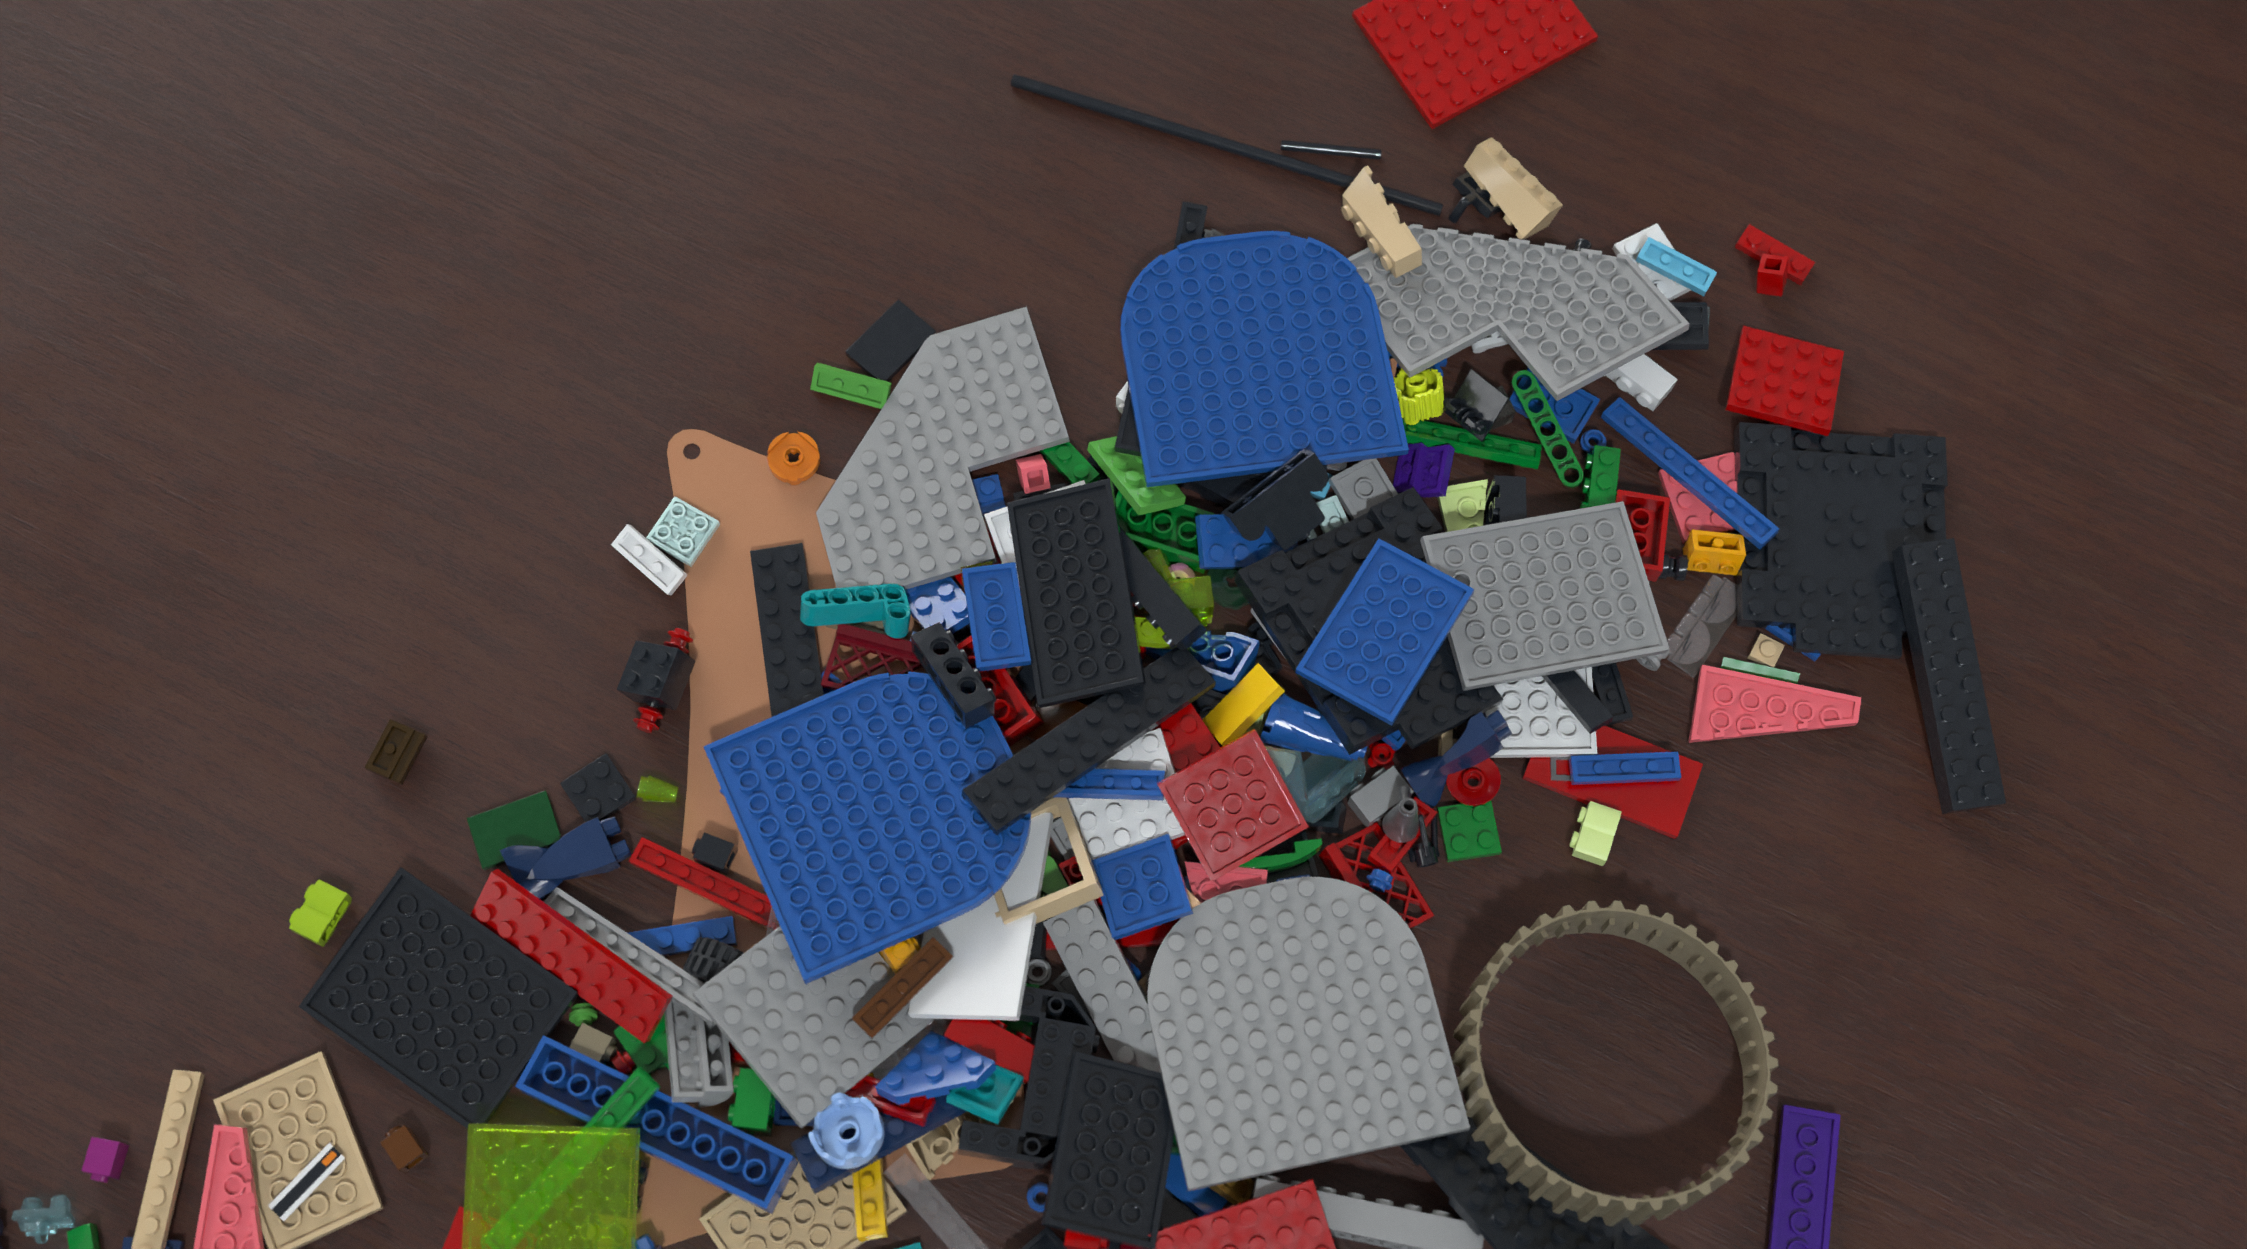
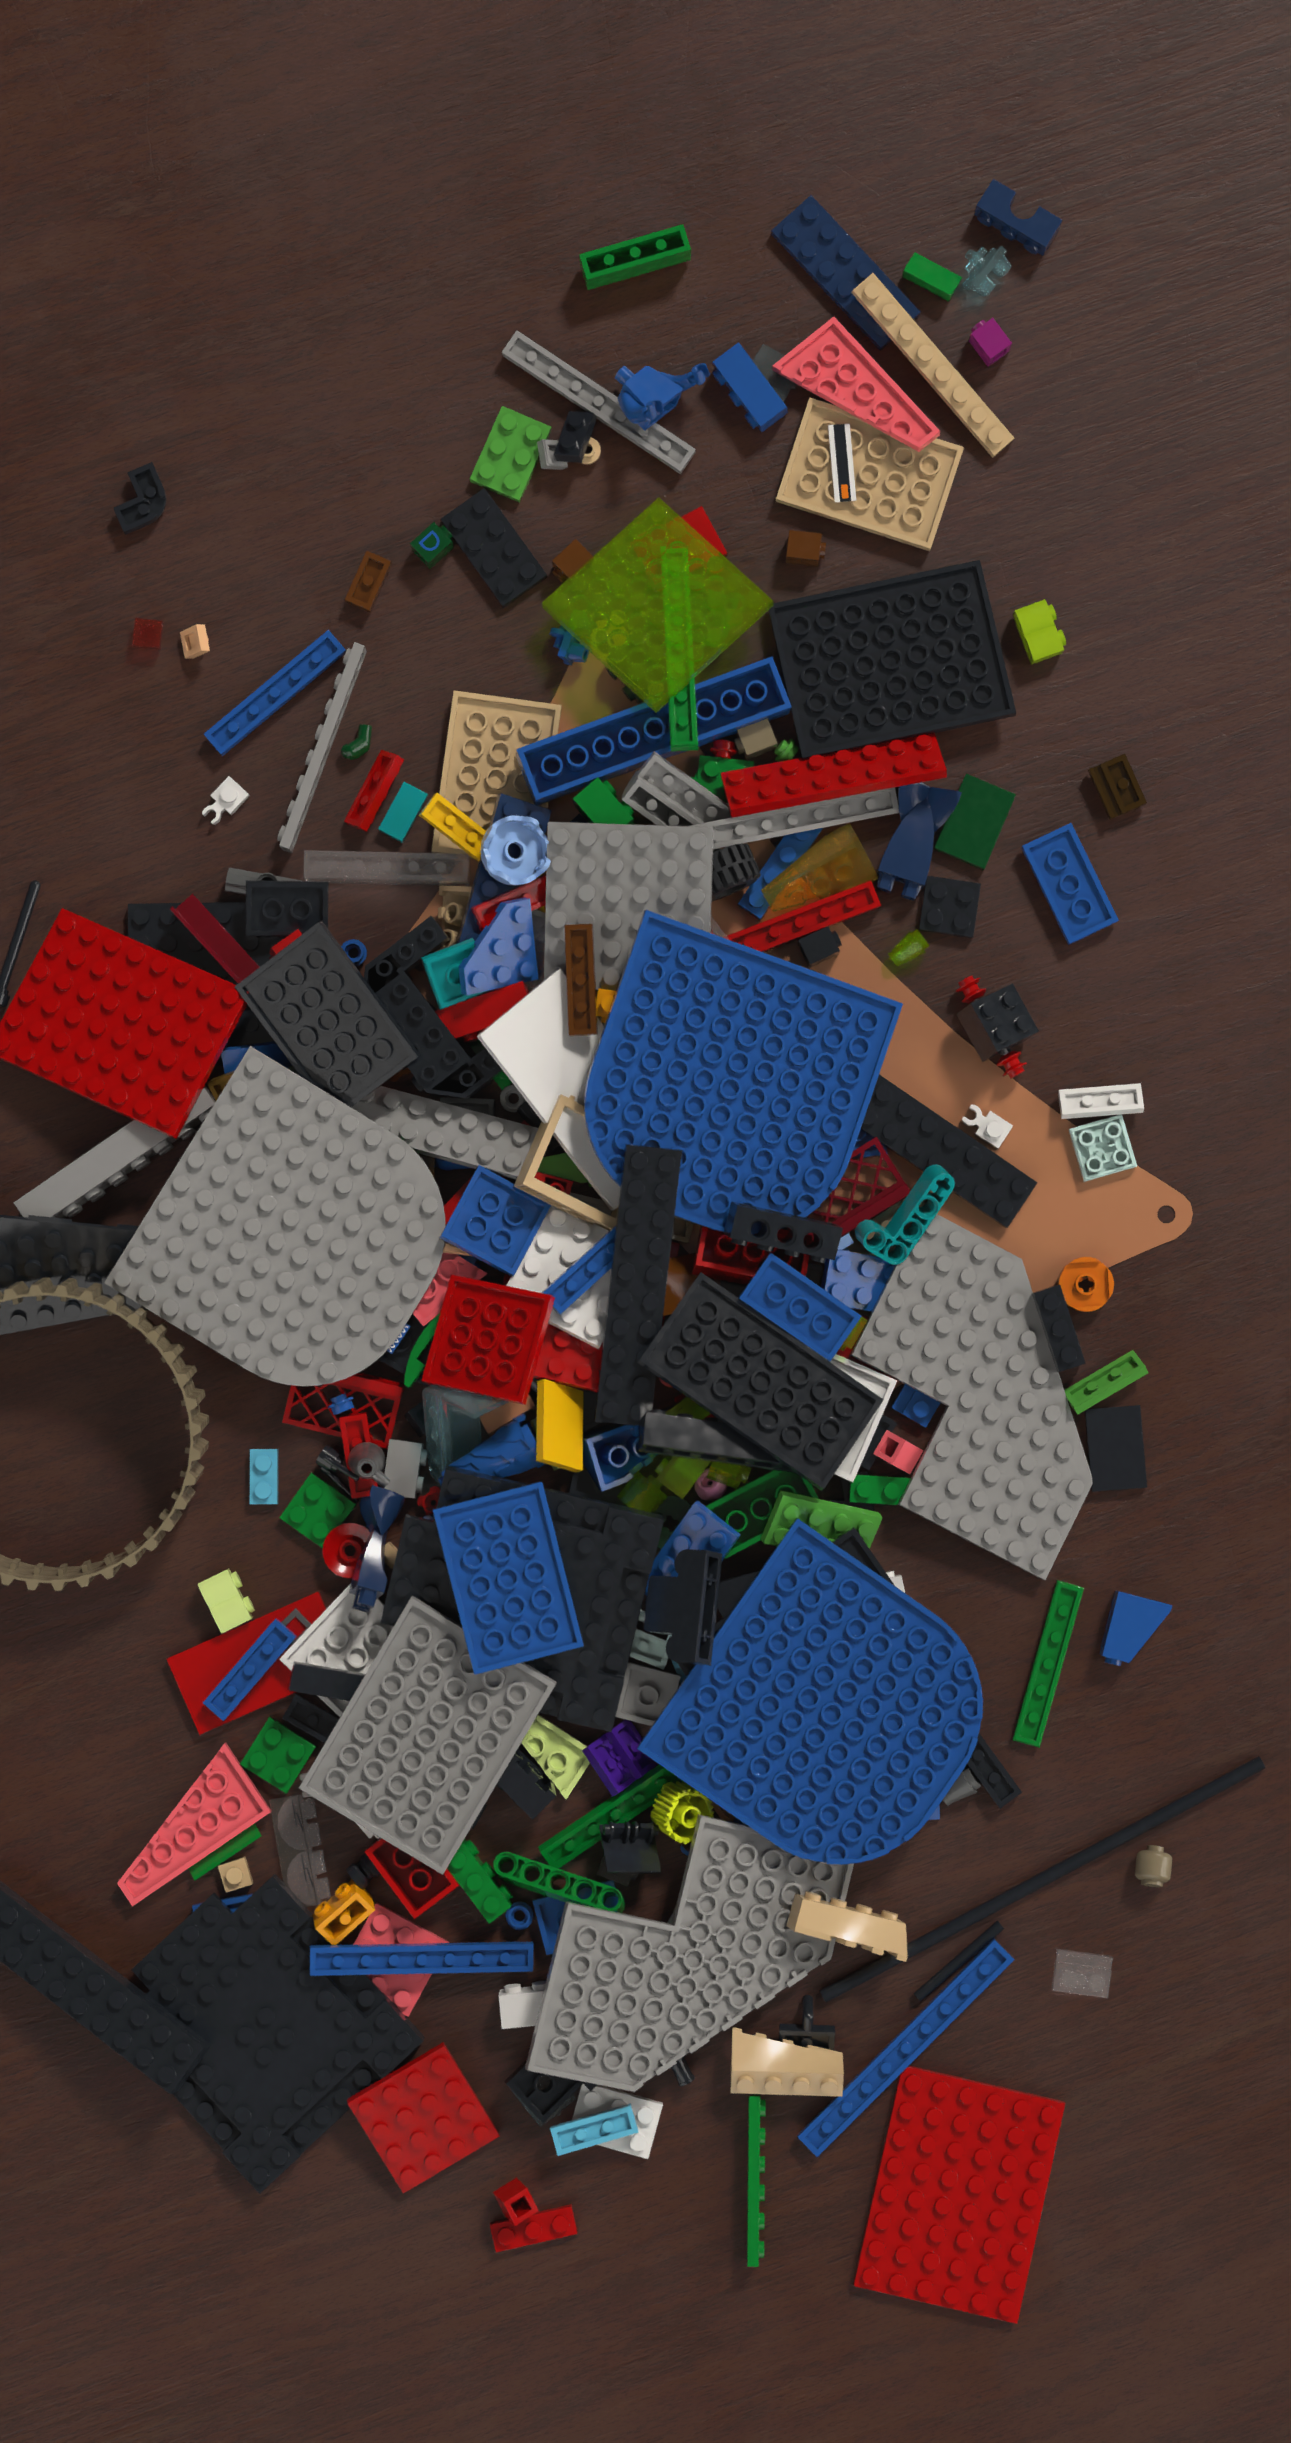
camera: 140 degrees right, 15 degrees up
(502, 721) = (1069, 883): none -> blue plate
(641, 900) = (825, 869): none -> clear yellow wedge
(739, 618) = (990, 1128): none -> white plate
(841, 446) = (1058, 1328): none -> black brick
(1003, 229) = (1130, 1626): none -> blue slope
(1080, 261) = (1048, 1663): none -> green tile
(1148, 84) = (1153, 1866): none -> dark tan head
(1233, 614) = (643, 1493): none -> clear neon green brick
(1260, 71) = (1082, 1973): none -> clear plate
(1417, 132) = (905, 2047): none -> blue plate
(1484, 892) = (263, 1476): none -> medium azure plate
(1604, 143) = (755, 2191): none -> green plate
(1659, 699) = (278, 1754): none -> green plate

